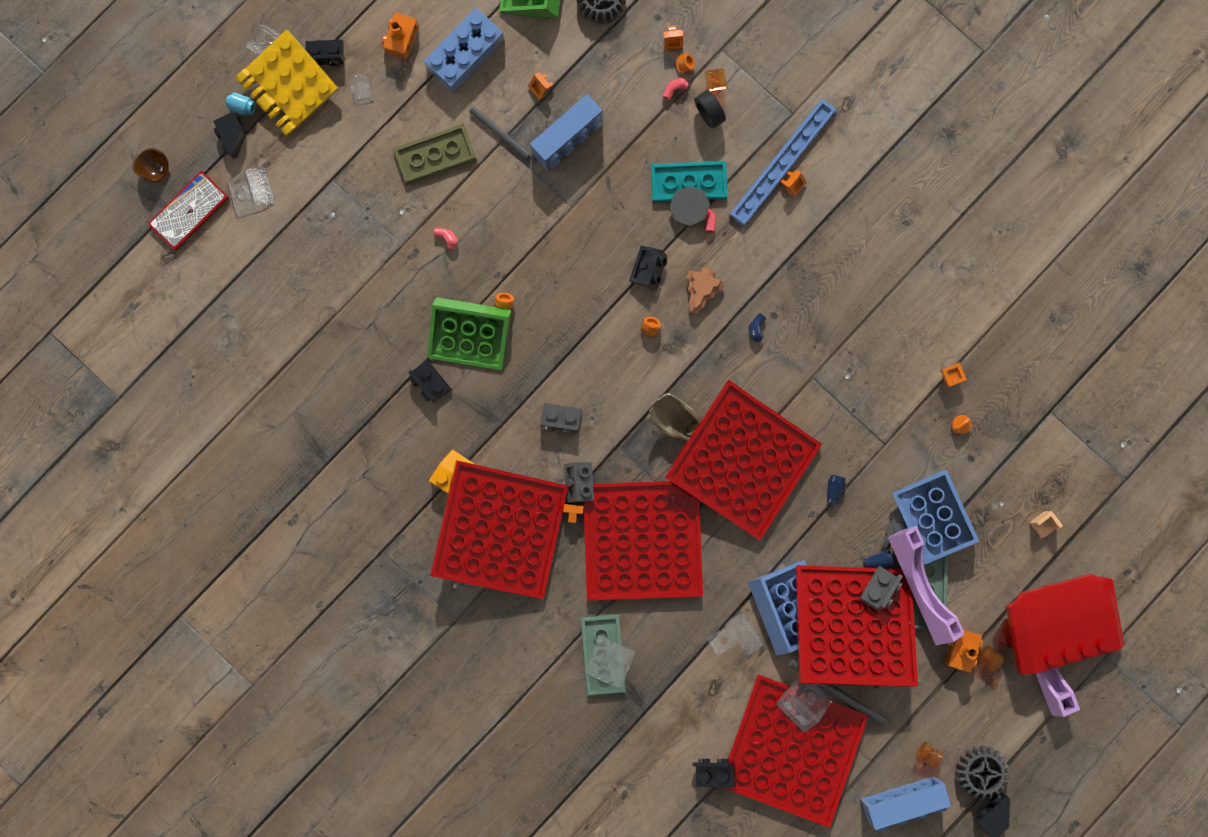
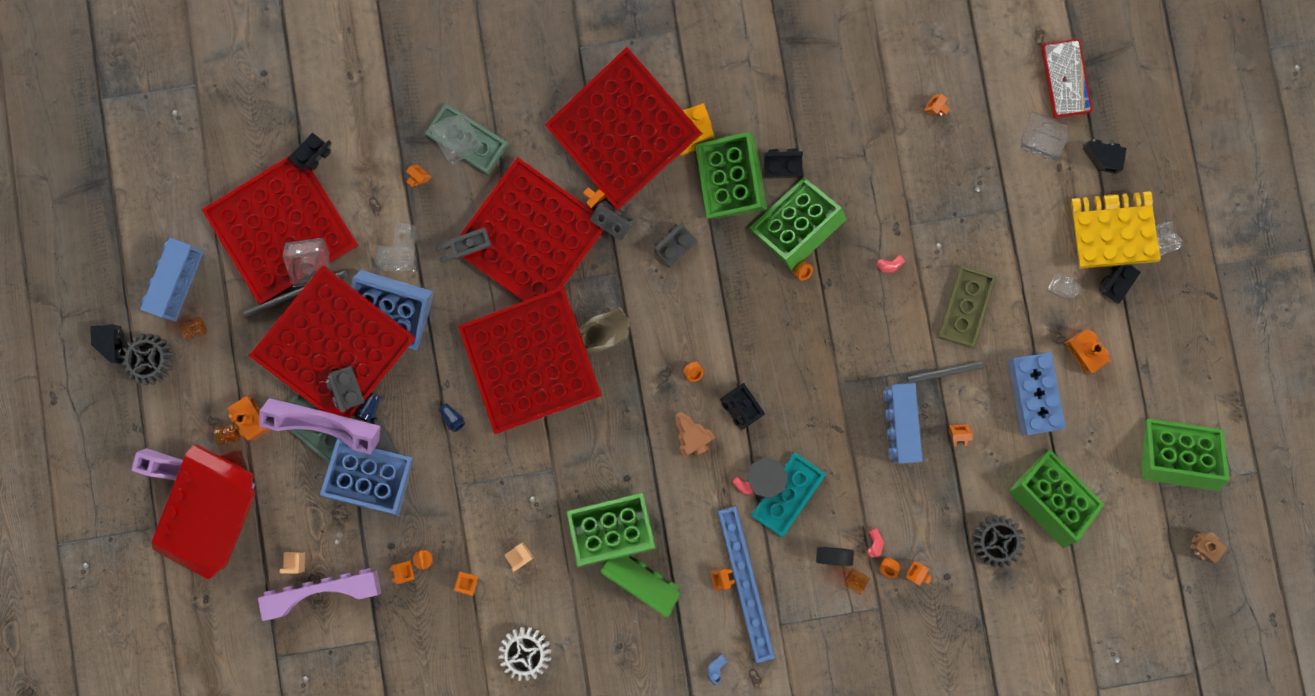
camera: 130 degrees right, 0 degrees up
(151, 165) = (1125, 73): reddish brown helmet -> none
(240, 104) = (1124, 181): medium azure brick -> none
(288, 295) = (937, 105): none -> orange tile
(471, 414) = (731, 176): none -> bright green slope
(664, 670) = (417, 176): none -> orange tile
(691, 583) = (465, 245): none -> dark grey hinge
(754, 328) = (627, 453): dark blue arm -> none
(826, 291) = (610, 530): none -> bright green slope
(846, 239) = (643, 583): none -> bright green slope
(865, 138) = (714, 669): none -> medium blue arm
(900, 351) = (519, 556): none -> light nougat panel
(984, 294) = (527, 661): none -> white gear
(984, 432) = (402, 572): none -> orange tile
(1022, 458) = (359, 586): none -> lavender arch

